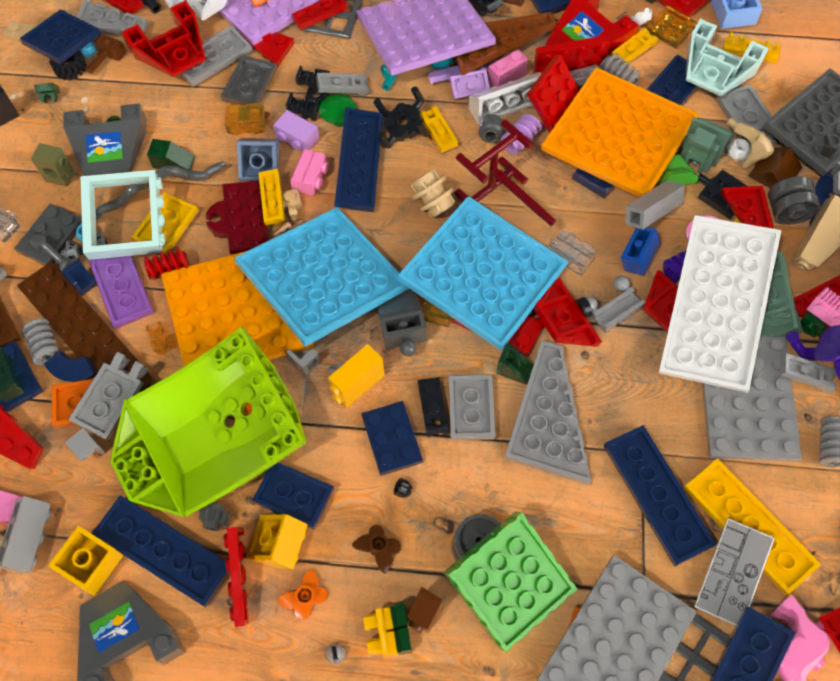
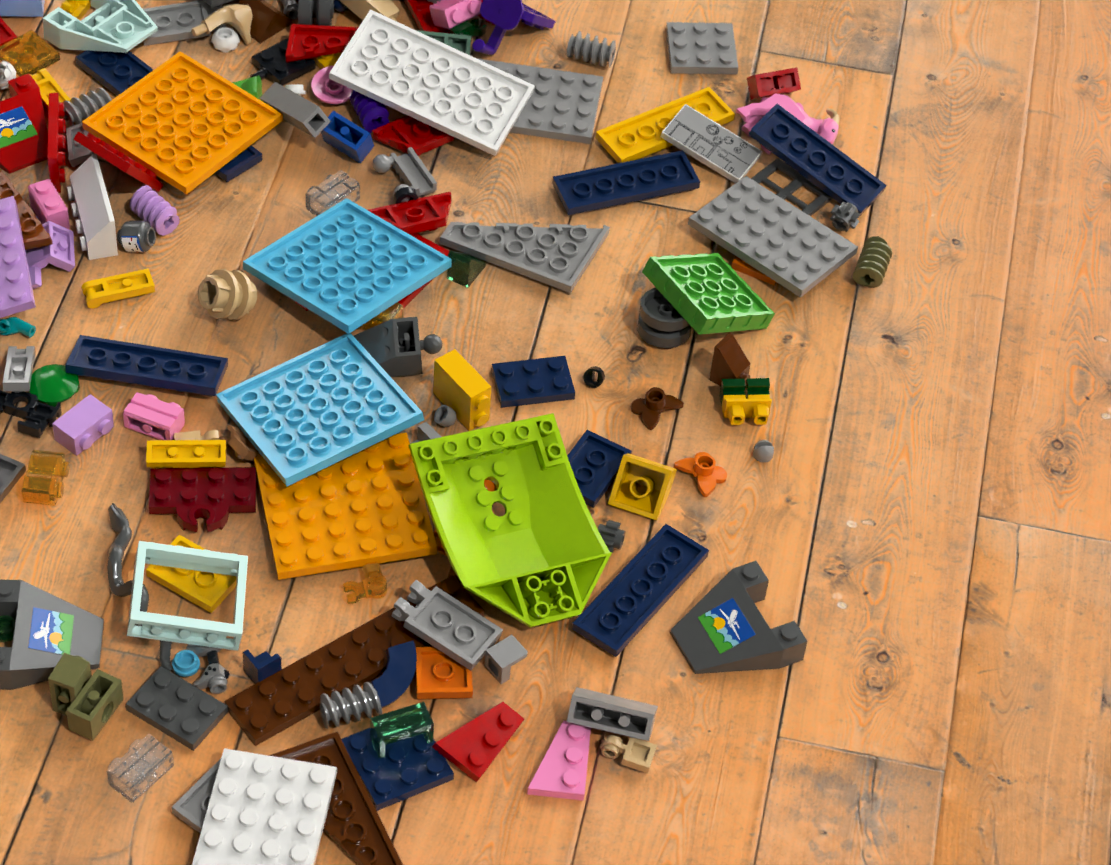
camera: 90 degrees left, 15 degrees down
(39, 242) = (200, 698): dark grey bar -> none
(41, 182) = (95, 704): none -> olive brick
(85, 560) = (649, 651): yellow brick -> none
(121, 289) = (285, 626): medium lavender tile -> none
(164, 263) = (262, 574): red piece -> none
(168, 153) = (84, 566): dark green slope -> none
(236, 550) = (653, 511): red wing -> none
(257, 156) = (115, 466): sand blue slope -> none
(398, 115) = (100, 302): black plate -> none
(432, 406) = (502, 342): black plate -> none
(471, 407) = (509, 308): light grey plate -> none
(497, 177) = (230, 222): dark red piece -> none
(690, 206) = (296, 88): none -> white plate
(705, 143) = (224, 51): sand green piece -> none
(808, 372) = (515, 48): light grey plate -> none

